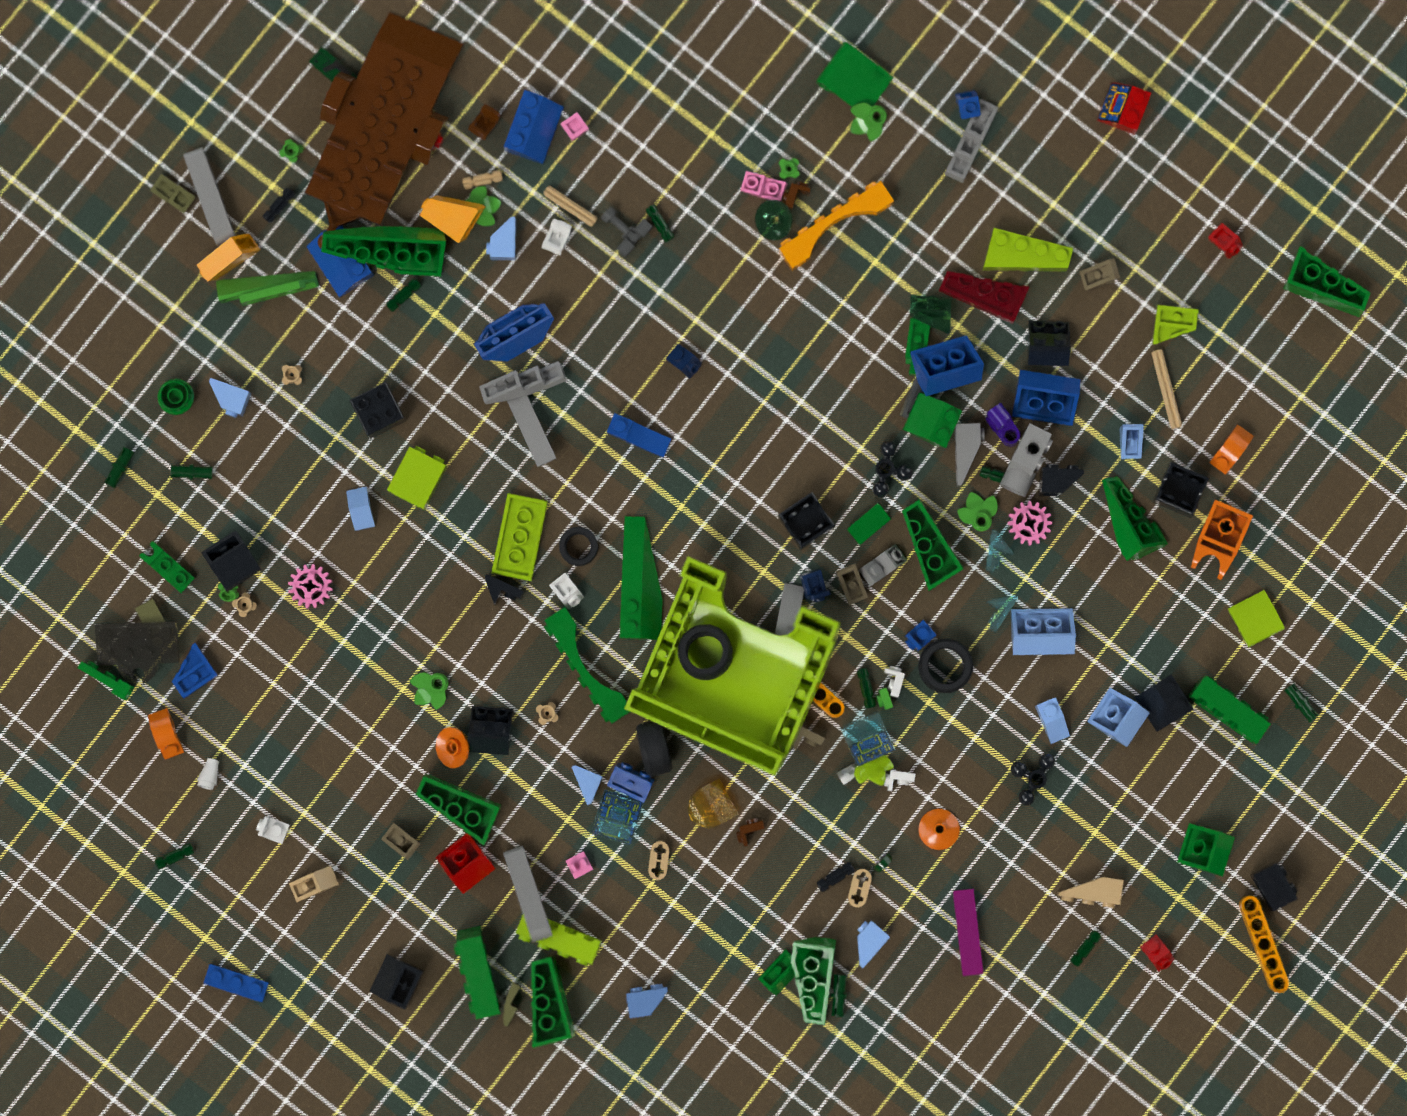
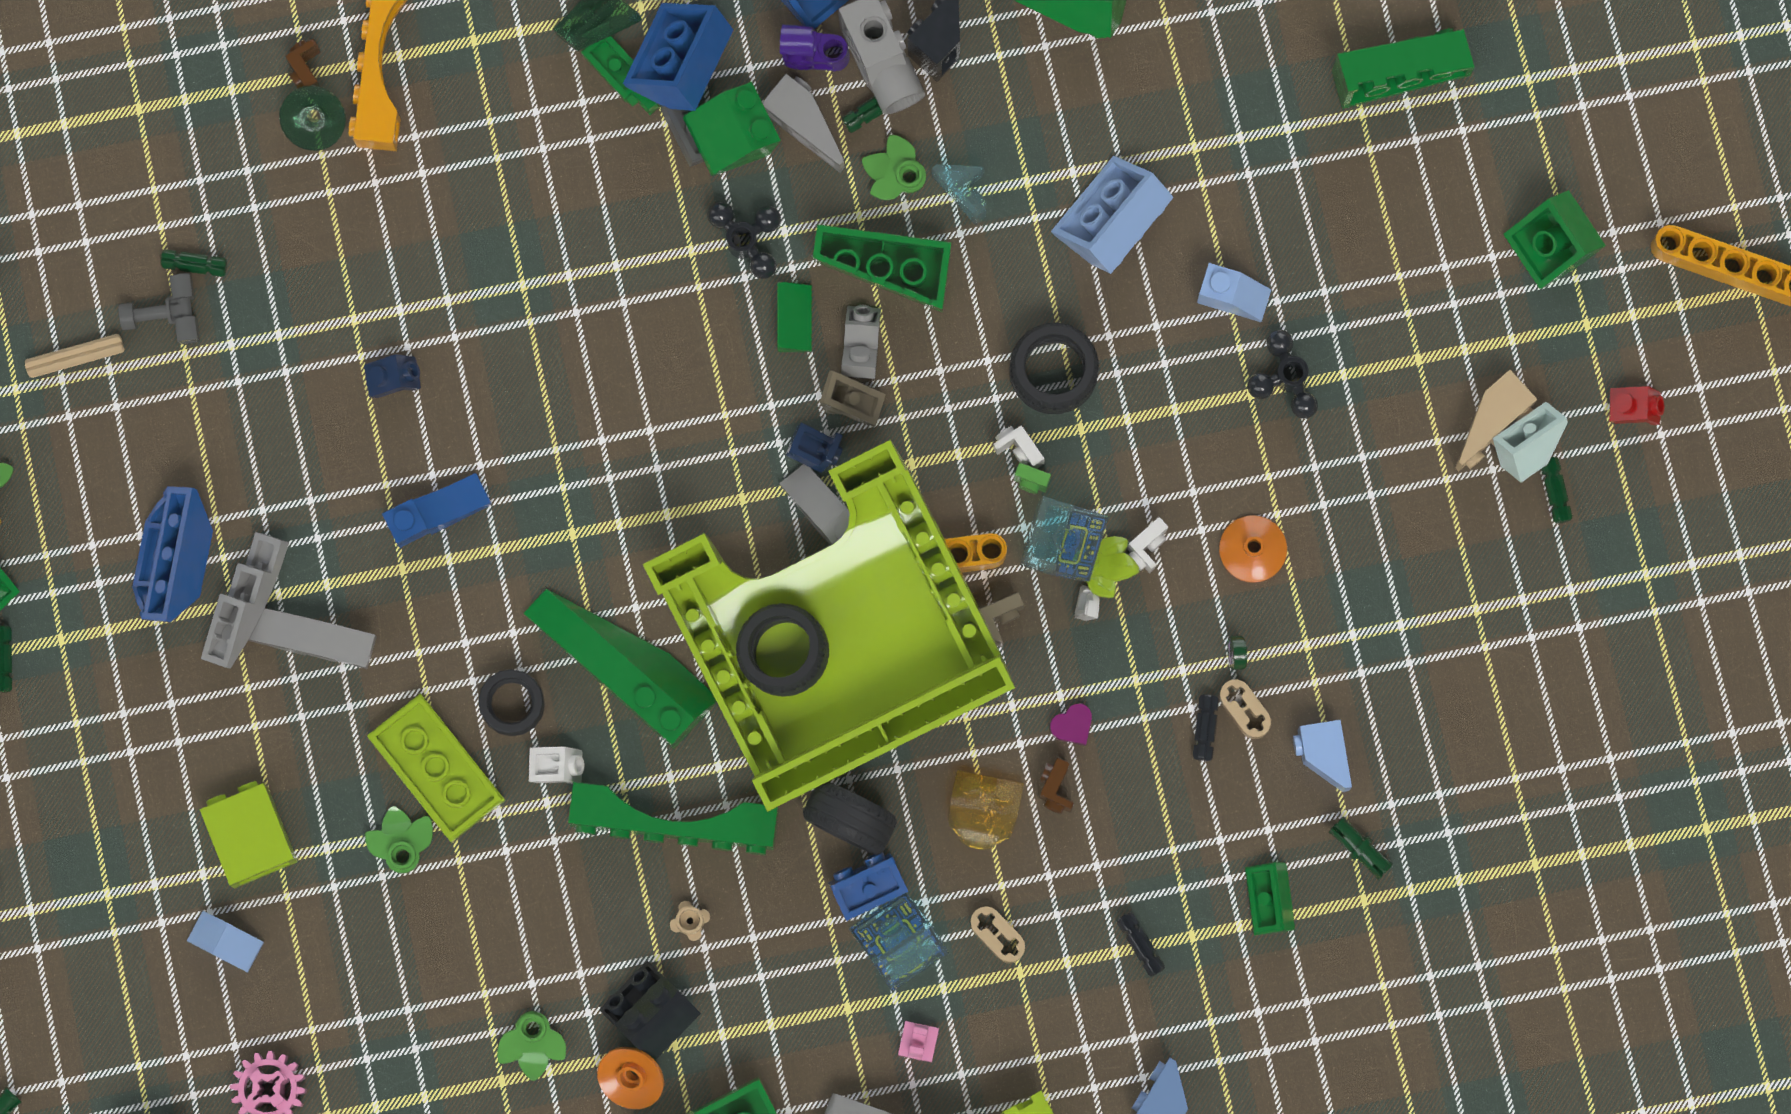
camera: 50 degrees left, 5 degrees down
(377, 410) = (119, 812): black piece -> none
(475, 547) = (400, 835): none -> bright green plate
(497, 586) = (474, 847): black slope -> none
(503, 242) = (45, 476): light blue slope -> none
(557, 236) = (97, 402): white bracket -> none
(588, 783) = (822, 941): light blue slope -> none
(709, 930) = (1141, 944): none -> black axle
(763, 187) = (259, 99): bright pink slope -> none
(785, 814) = (1073, 725): none -> magenta tile
(789, 173) = (267, 56): bright green plate -> none
(806, 521) = (724, 389): black piece -> none
(813, 968) = (1302, 853): green wedge -> none
(866, 688) = (998, 491): dark green axle -> none
(919, 636) = (989, 371): blue bracket -> none
(967, 932) = (1414, 619): magenta slope -> none
(1004, 606) = (1040, 236): clear light blue slope -> none
(1025, 513) = (950, 113): bright pink gear -> none
(1097, 918) = (1530, 441): none -> light aqua slope
(1118, 717) = (1297, 209): light blue slope -> none
(1164, 703) = (1327, 139): black slope -> none
(1274, 886) = (1671, 190): black slope -> none

